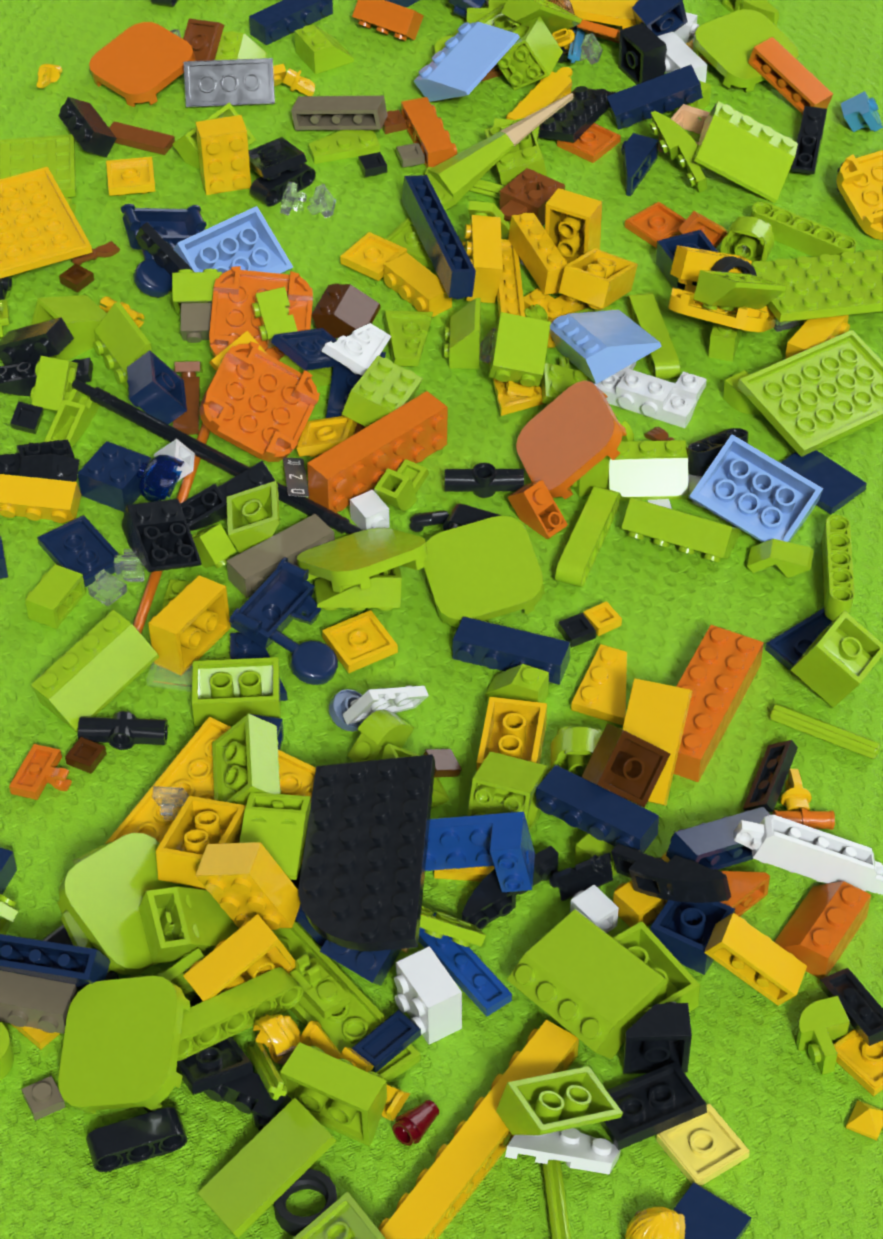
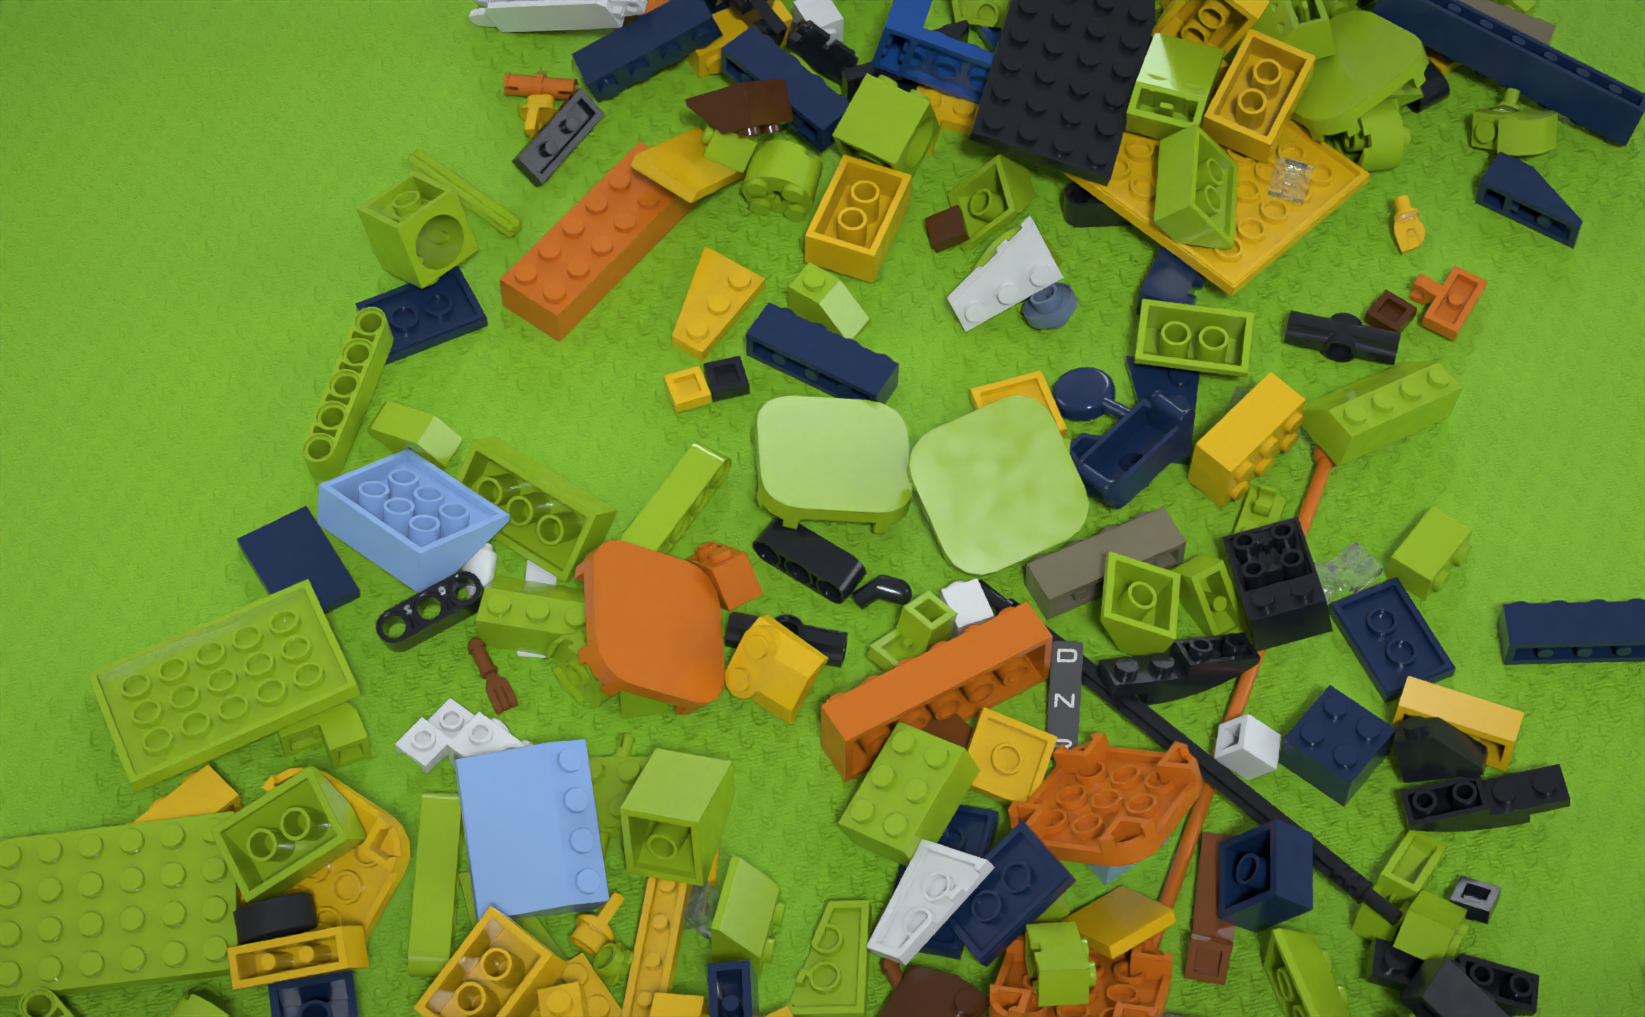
camera: 170 degrees left, 10 degrees up
(74, 827) = (1407, 228): none -> yellow piece
(159, 477) = (1270, 696): clear blue cylinder -> none
(491, 449) = (773, 668): none -> yellow slope

